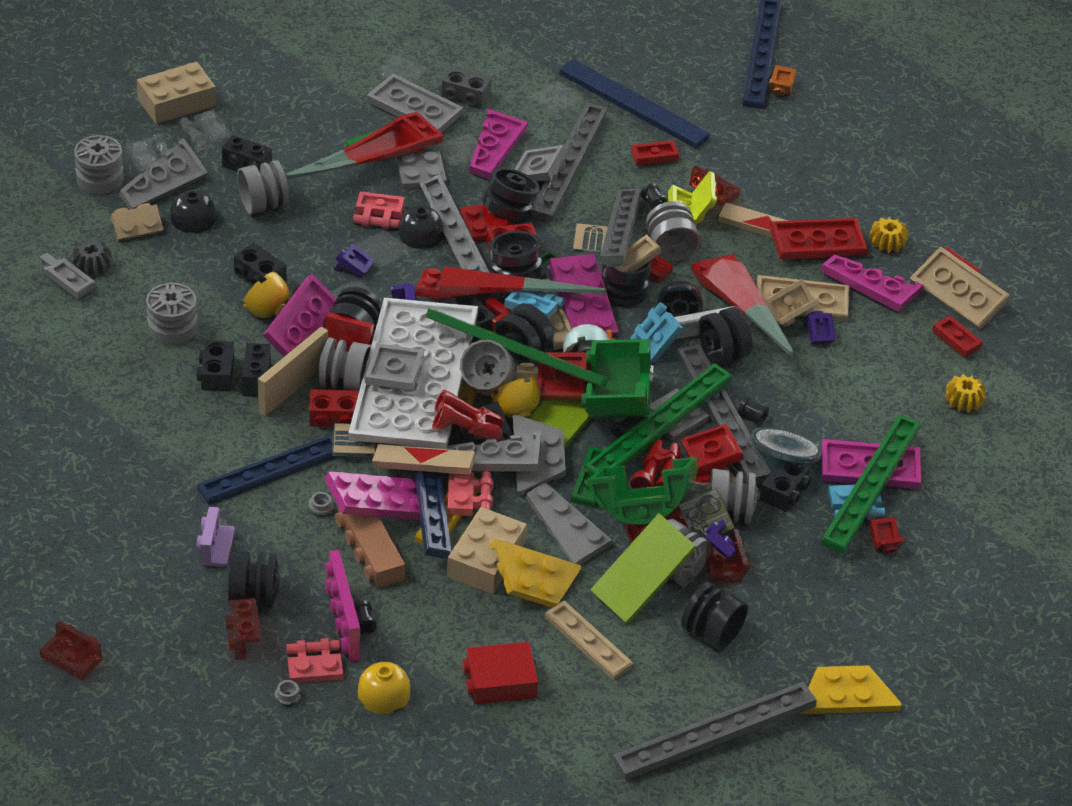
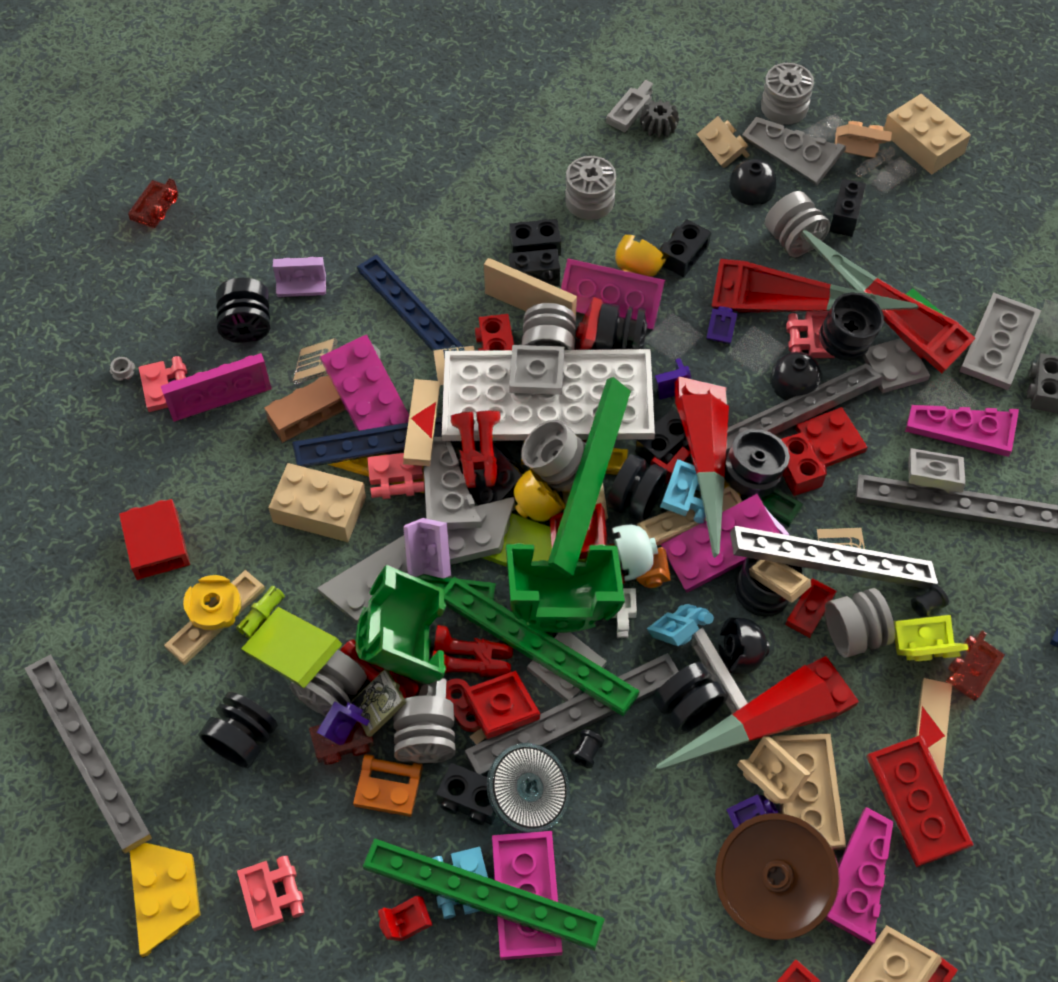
camera: 85 degrees right, 15 degrees up
(171, 133) = (861, 139): none -> light nougat bracket
(243, 624) = (188, 314): clear red bracket -> none
(321, 536) = (309, 363): none -> piece
(325, 227) = (762, 289): none -> red plate
(363, 611) = (217, 409): black bush -> none
(384, 688) = (131, 443): yellow cylinder -> none
(393, 172) = (851, 326): none -> black wheel
(510, 194) = (867, 445): black wheel -> none
(533, 574) = (283, 547): yellow wing -> none
(559, 469) = (427, 548): none -> lavender bracket
(577, 641) = (216, 617): none -> yellow plate
(590, 605) = (260, 611): none -> lime pin
(654, 152) = (1015, 594): red plate -> none
(776, 540) = (385, 794): none -> orange plate
(855, 619) = (261, 897): none -> coral plate
(873, 318) = (777, 876): none -> reddish brown dish
(889, 235) = (963, 882): yellow gear -> none

